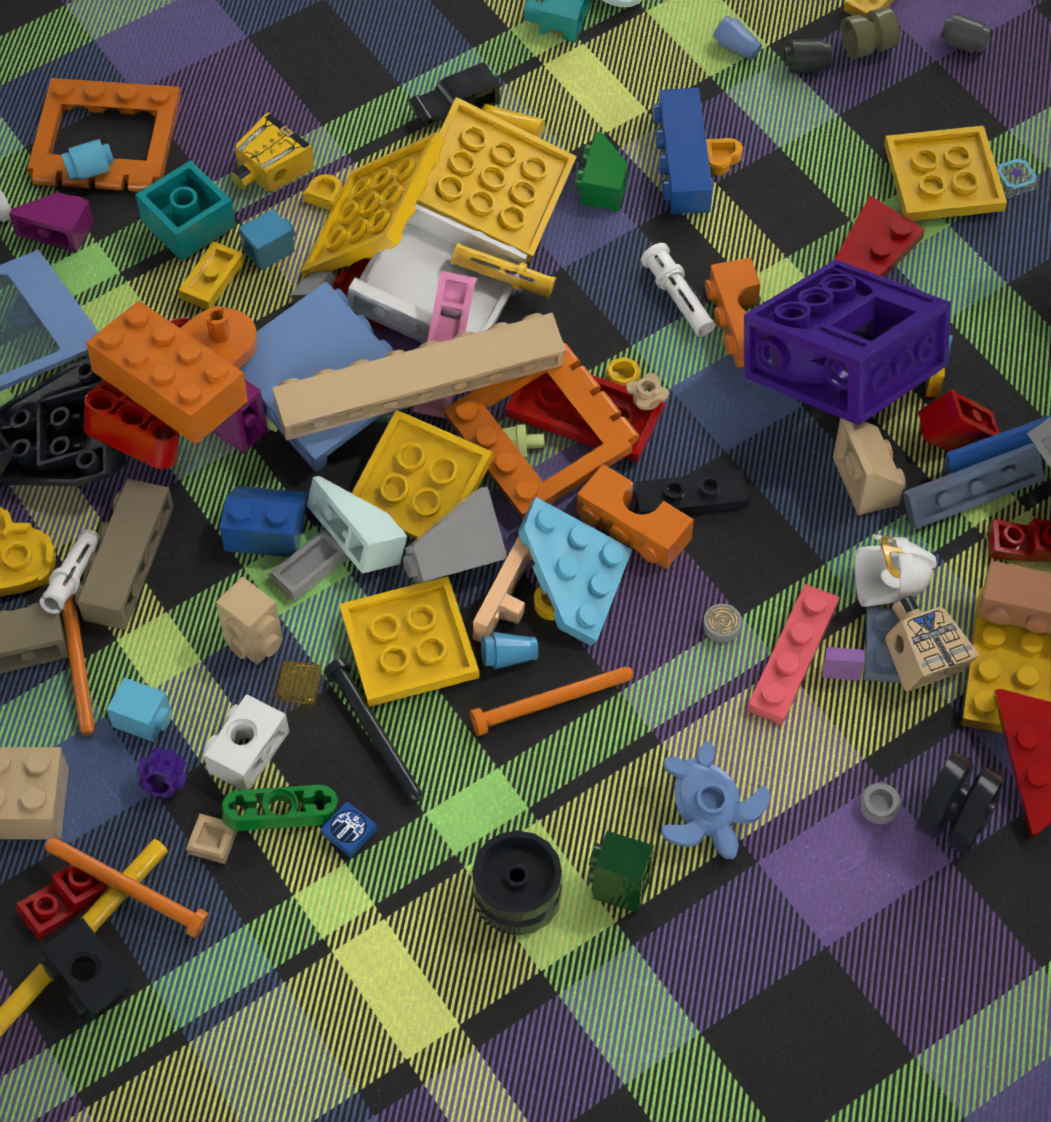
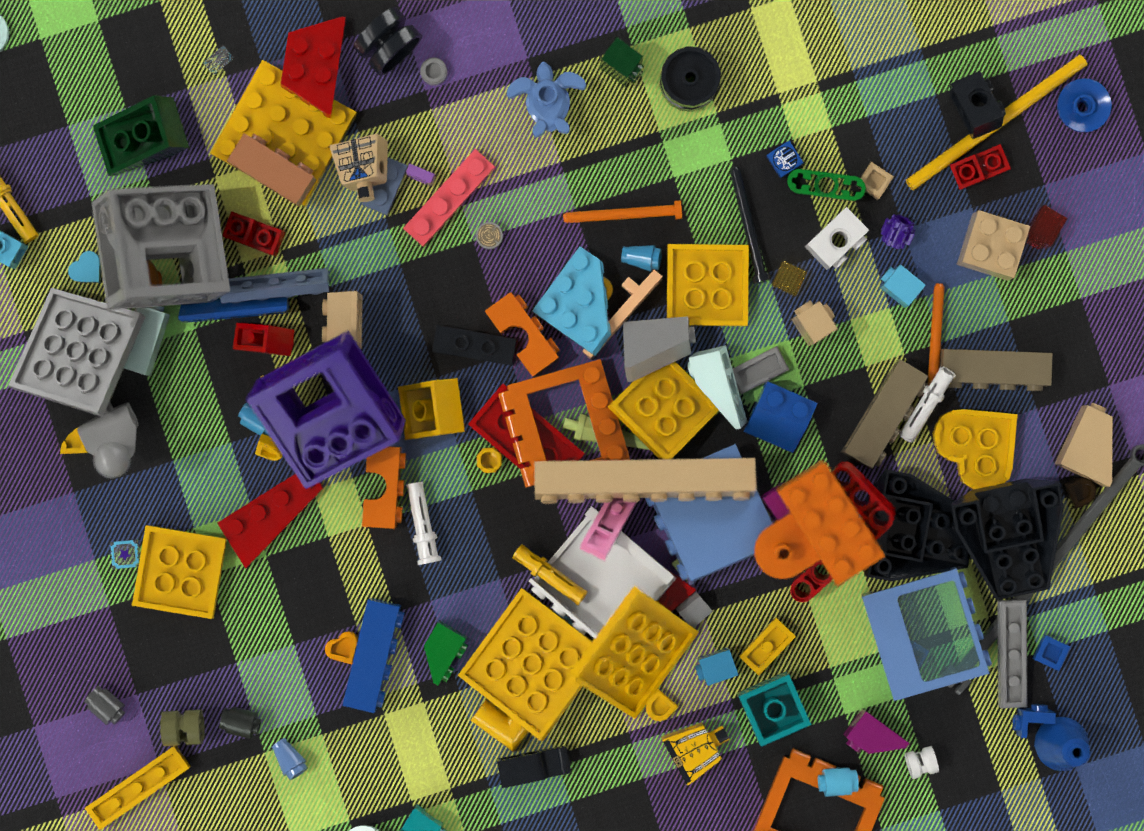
camera: 170 degrees left, 30 degrees up
(127, 885) = (901, 123): orange bar -> none
(647, 400) = (473, 425): tan plate -> none
(715, 406) = (431, 408): none -> yellow slope
(891, 571) = (362, 229): white helmet -> none

